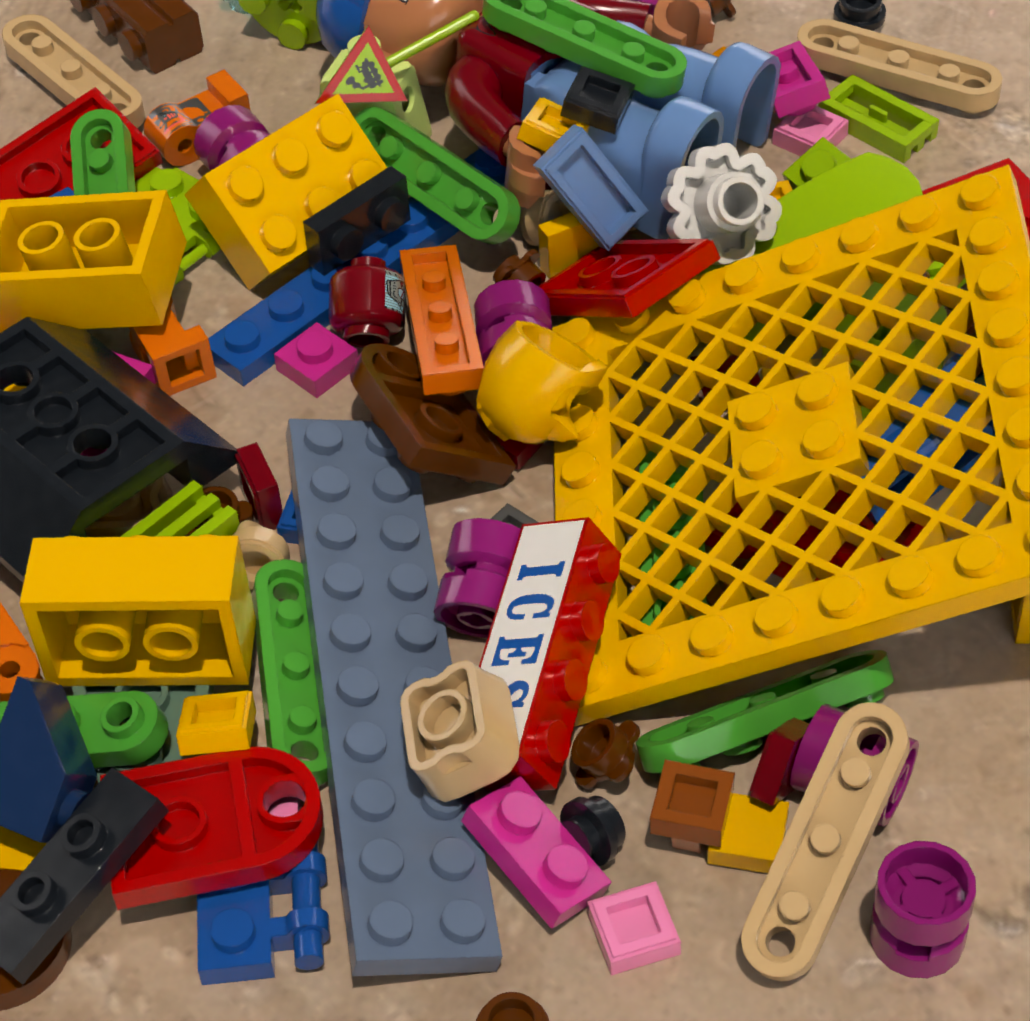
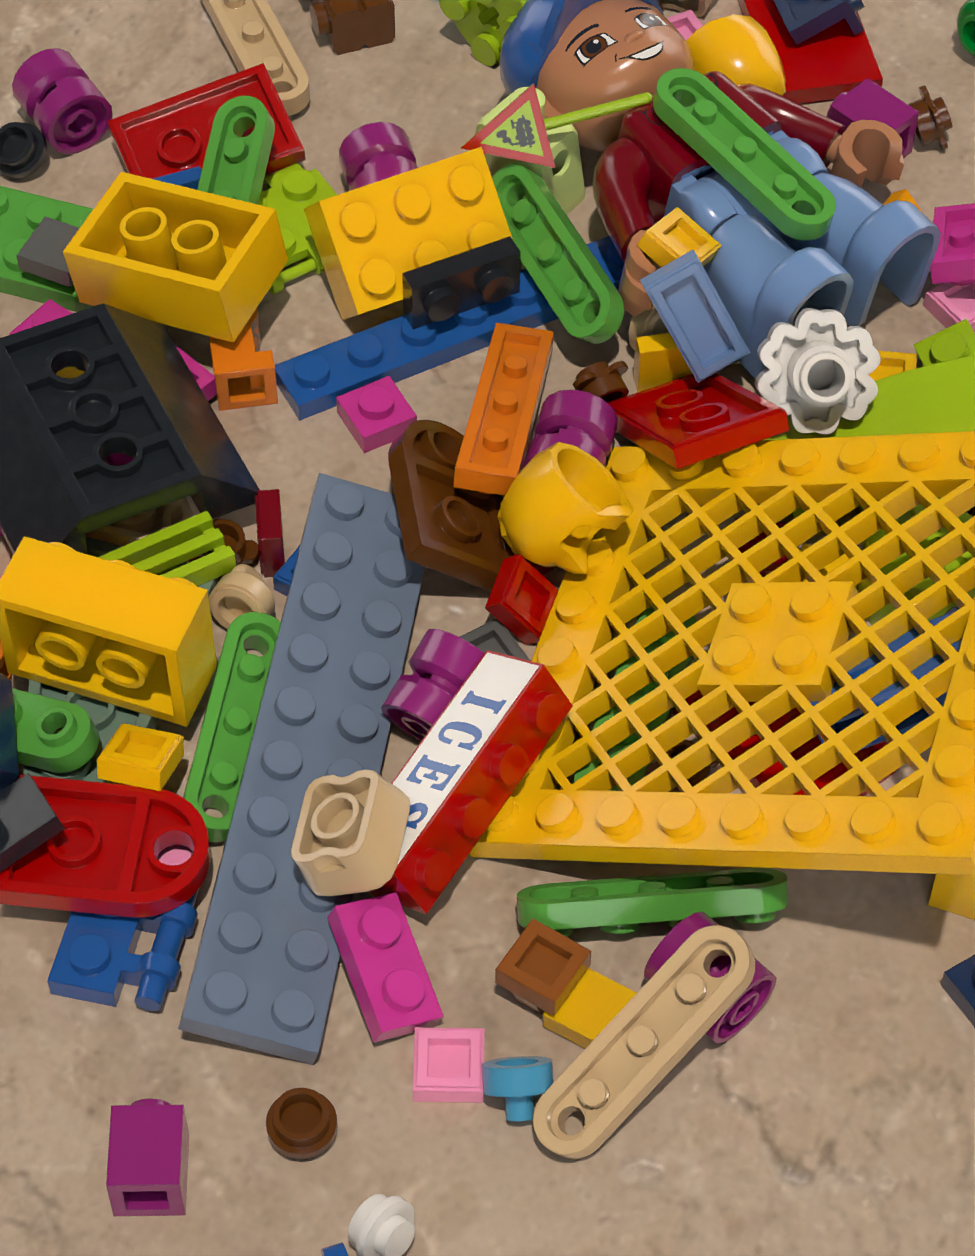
camera: 15 degrees right, 5 degrees up
(174, 126) = (330, 121): orange leg -> none
(367, 302) = (442, 370): dark red head -> none
(525, 479) = (521, 599): none -> red tile
(594, 826) = (447, 961): black plate -> none
(597, 100) = (731, 227): black tile -> none
(604, 751) = (487, 891): reddish brown plate -> none
(712, 920) = (517, 1081): none -> dark azure tile
(776, 762) = (629, 960): dark red tile -> none
(922, 909) = (709, 1133): magenta wheel -> none

